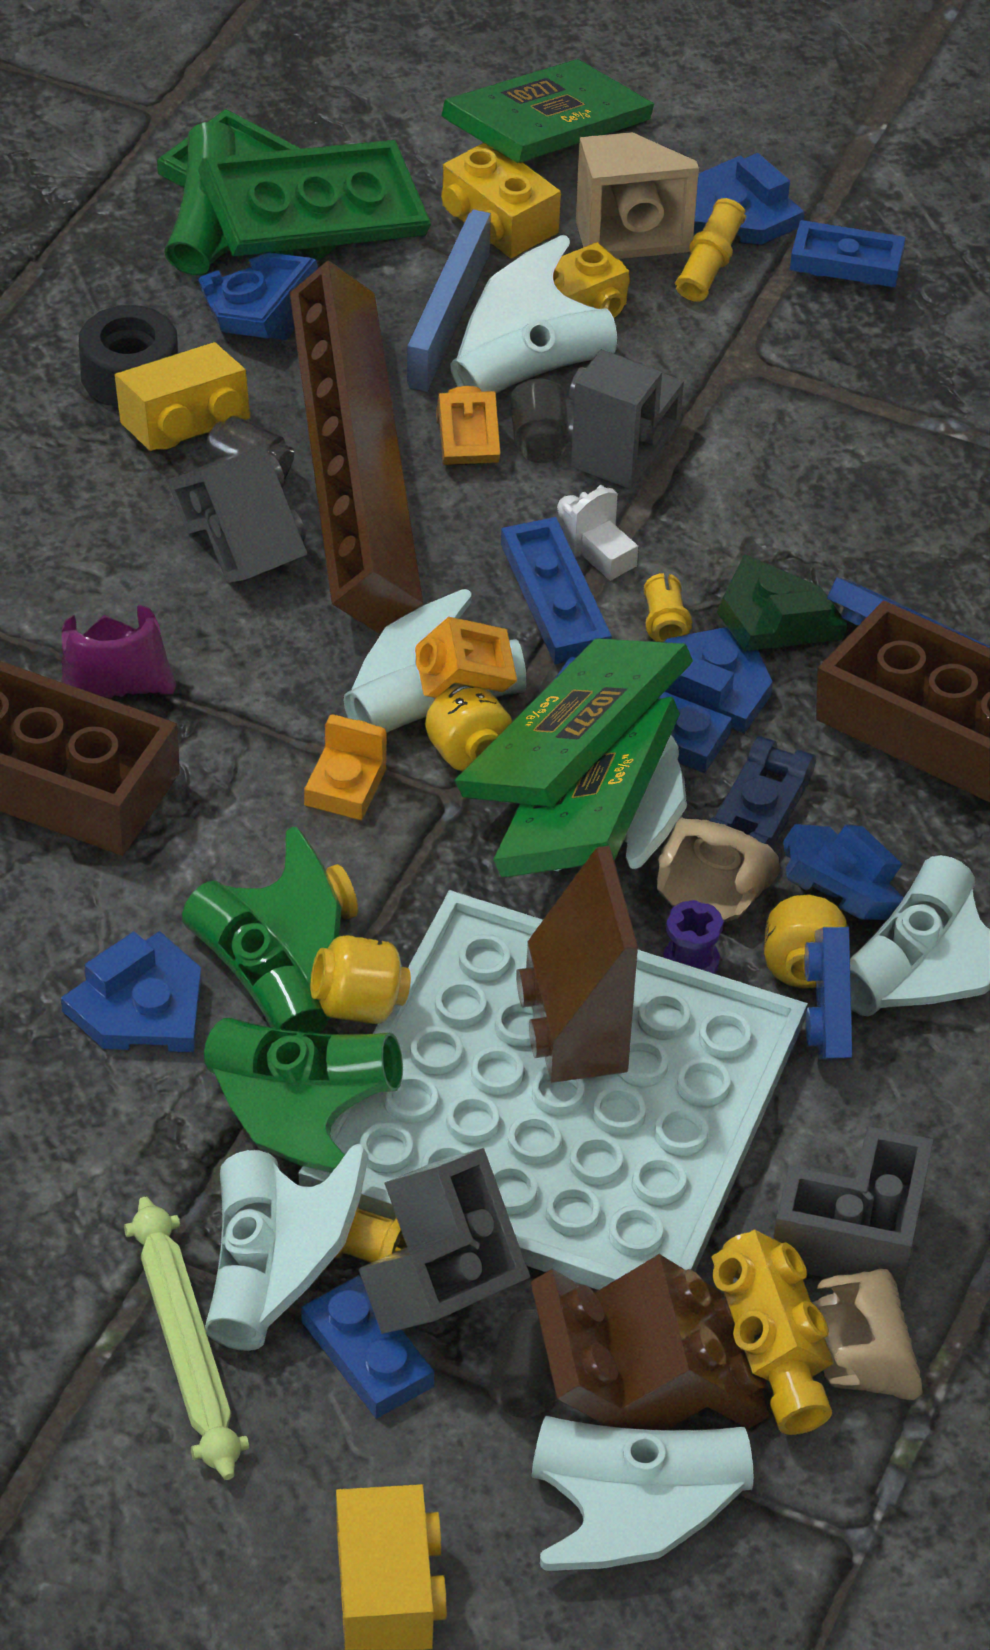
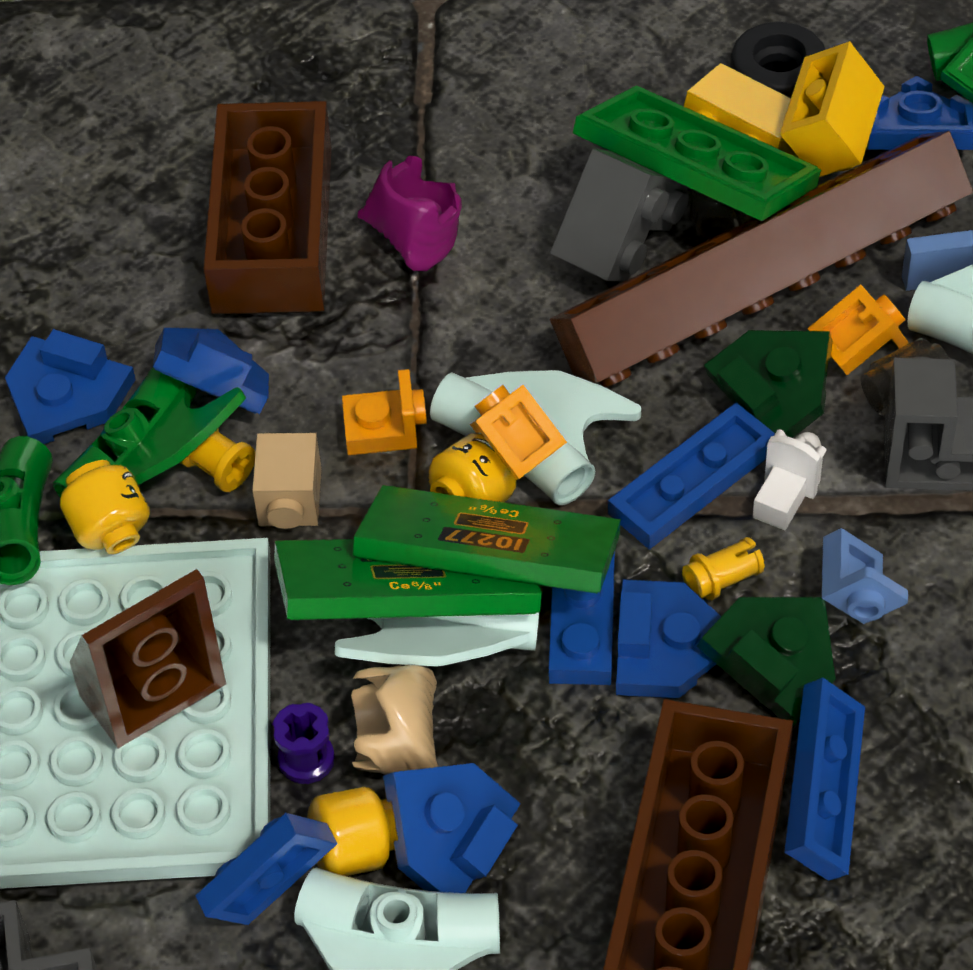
camera: 70 degrees right, 5 degrees up
(220, 854) = (211, 364): none -> blue plate
(225, 423) = (698, 152): none -> green tile
(238, 322) = (832, 109): none -> yellow brick
(387, 857) = (287, 479): none -> tan brick
(482, 495) = (776, 376): none -> dark green plate
(725, 535) = (856, 580): none -> medium blue bracket
(762, 804) = (519, 735): dark blue plate -> none

